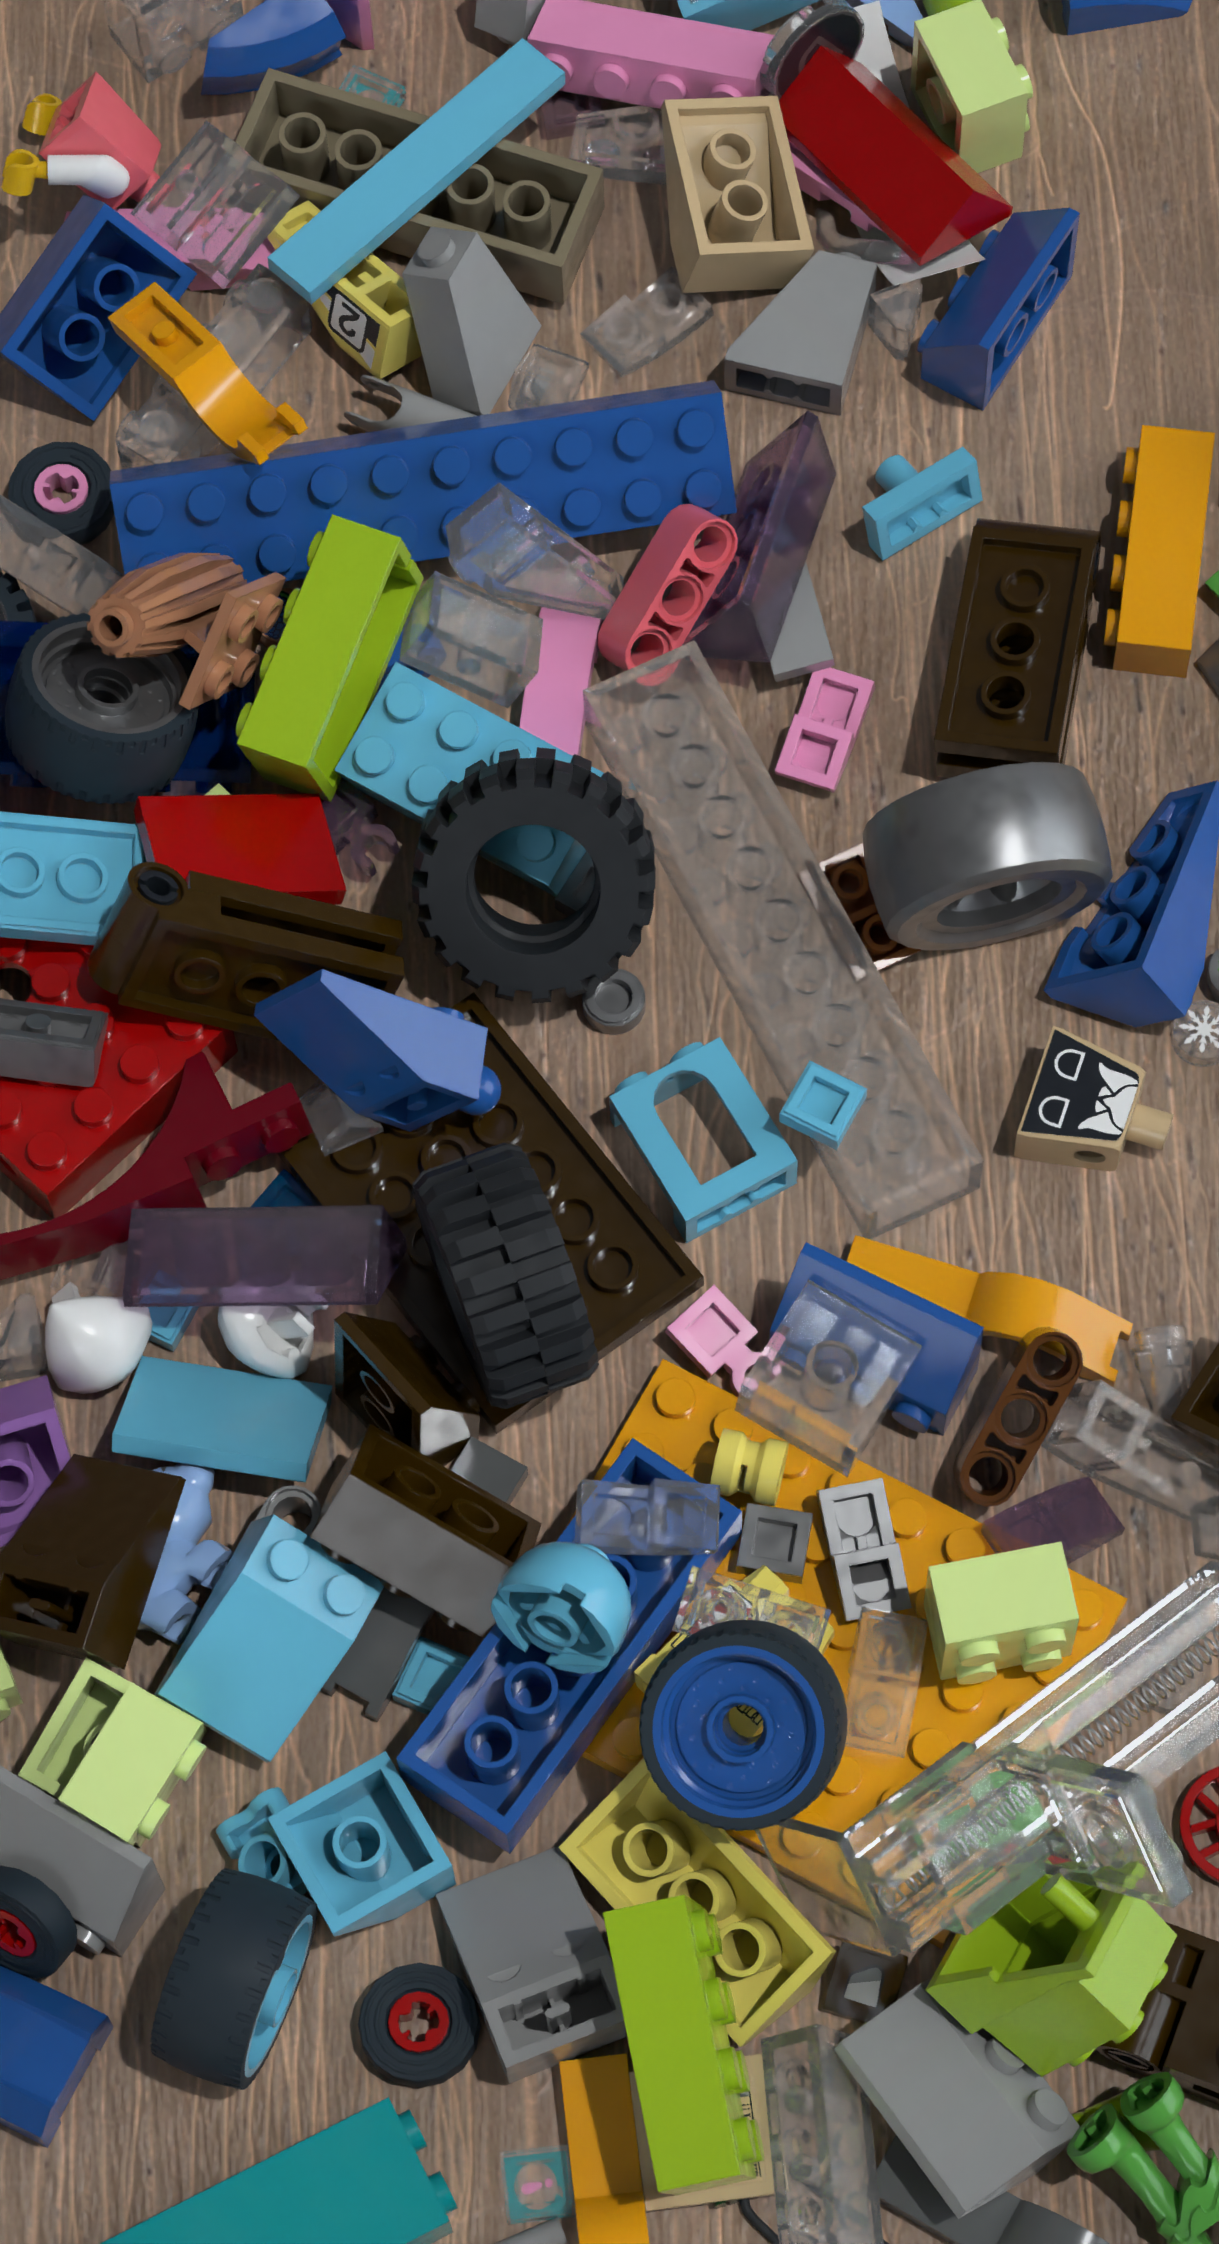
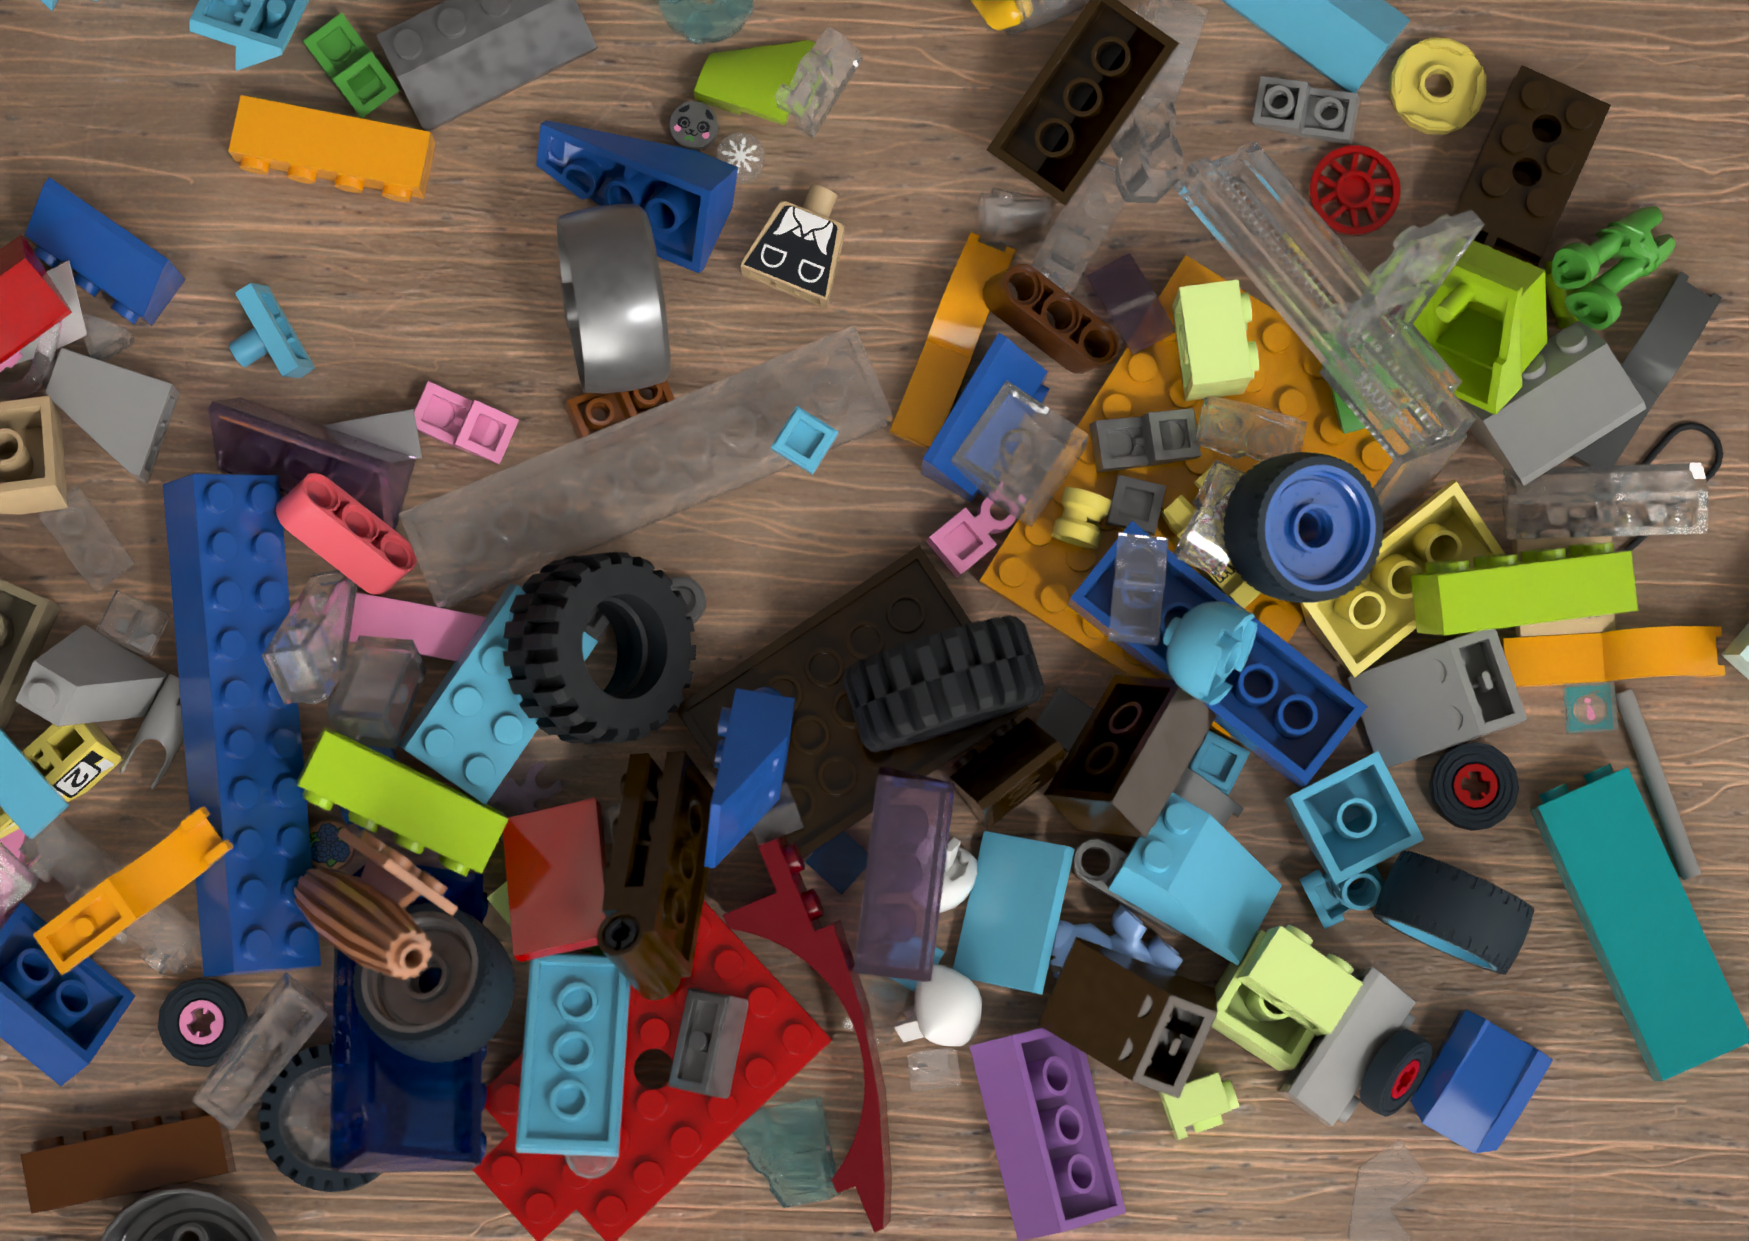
camera: 90 degrees left, 15 degrees up
(708, 1205) = (787, 585): medium azure panel -> none
(864, 1982) = (1465, 468): dark brown slope -> none
(1016, 646) = (369, 256): dark brown hinge -> none

